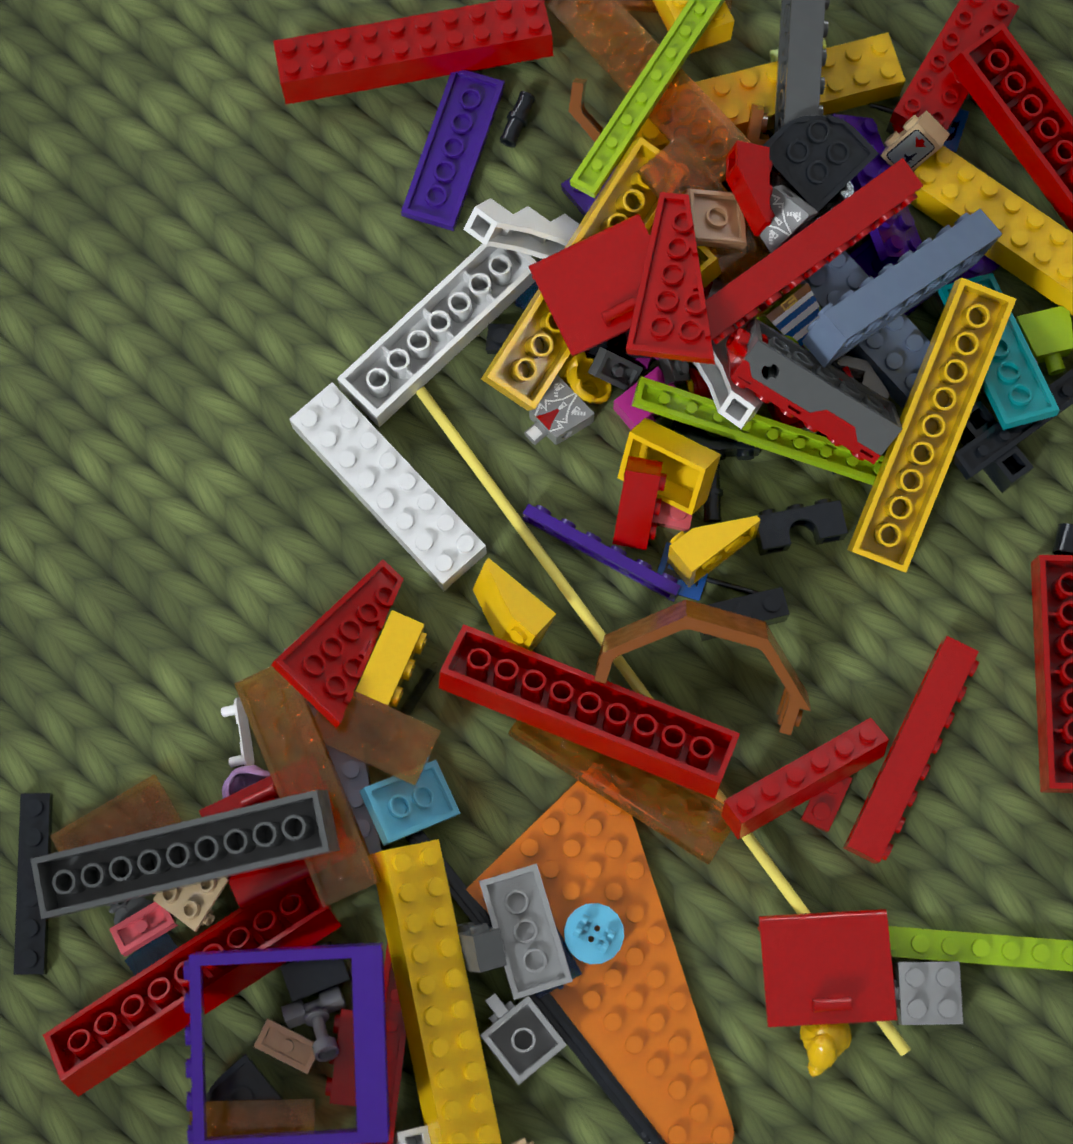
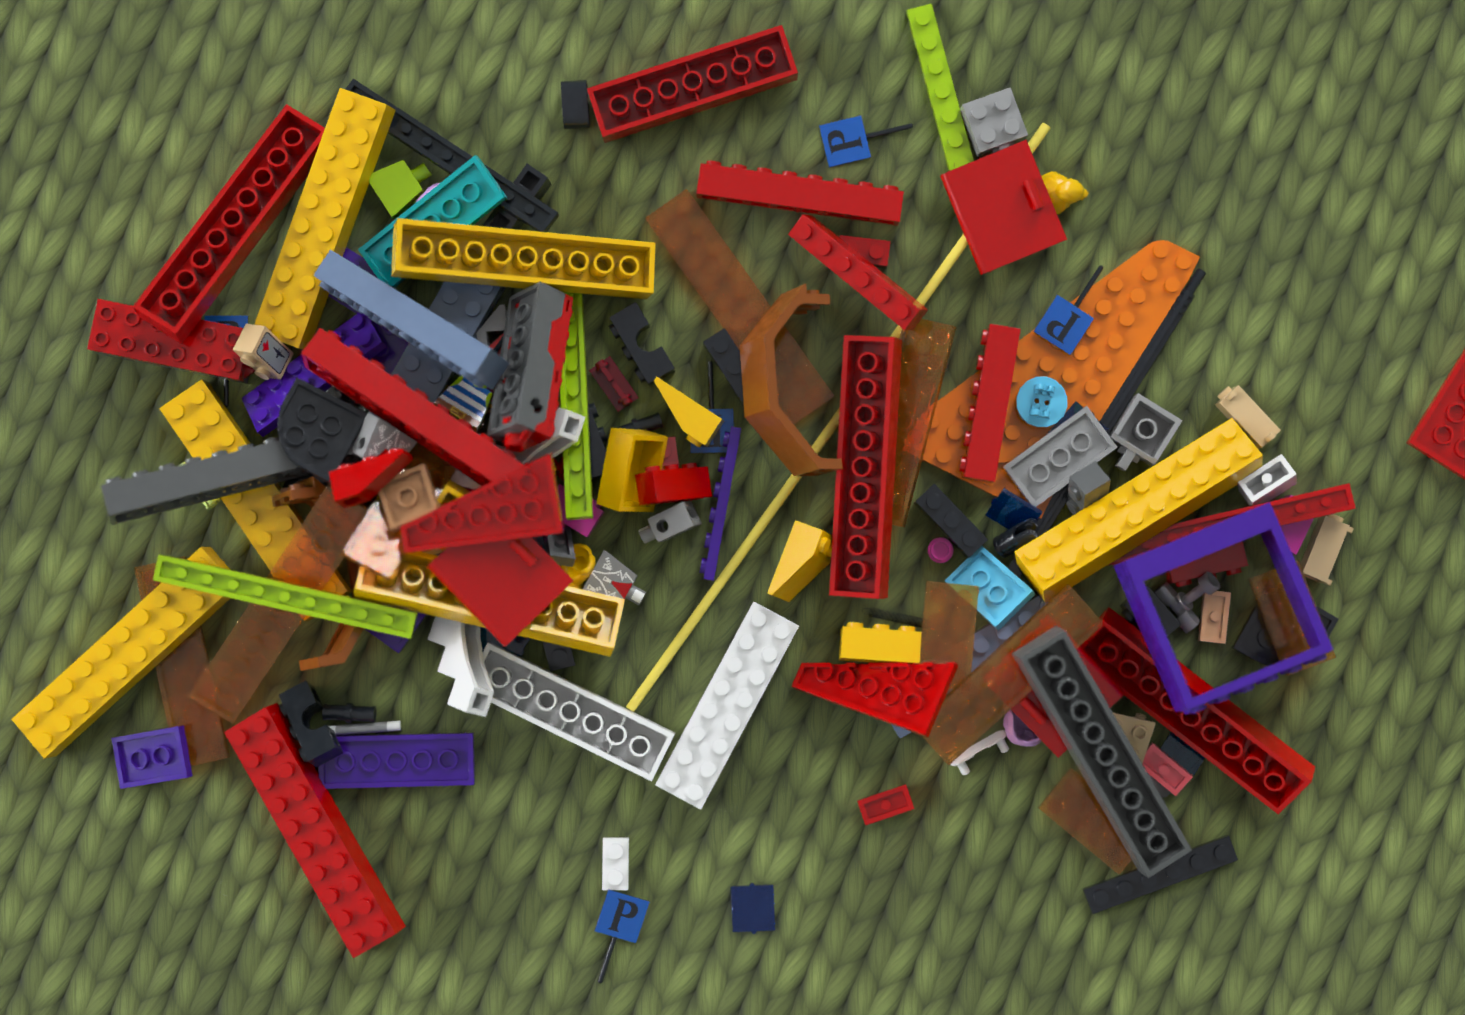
camera: 105 degrees left, 10 degrees up
(169, 445) = (753, 908): none -> clear blue piece
(212, 310) = (621, 919): none -> blue piece
(222, 614) = (885, 804): none -> red plate
(268, 324) = (615, 863): none -> white plate
(454, 850) = (1015, 537): none -> black hinge
(470, 767) = (940, 550): none -> dark pink plate
(482, 859) = (1011, 510): none -> clear blue piece
(498, 127) = (362, 728): none -> light grey bar
(498, 786) = (951, 521): none -> black arch
(540, 72) = (300, 705): none -> black arch
(599, 493) = (679, 519): none -> light grey torso
(612, 875) = (990, 404): none -> red brick
(673, 993) = (1065, 322): none -> blue piece
(767, 486) = (613, 383): none -> dark red hinge
(810, 643) = (735, 299): none -> clear orange plate
(955, 824) = (847, 141): none -> blue piece

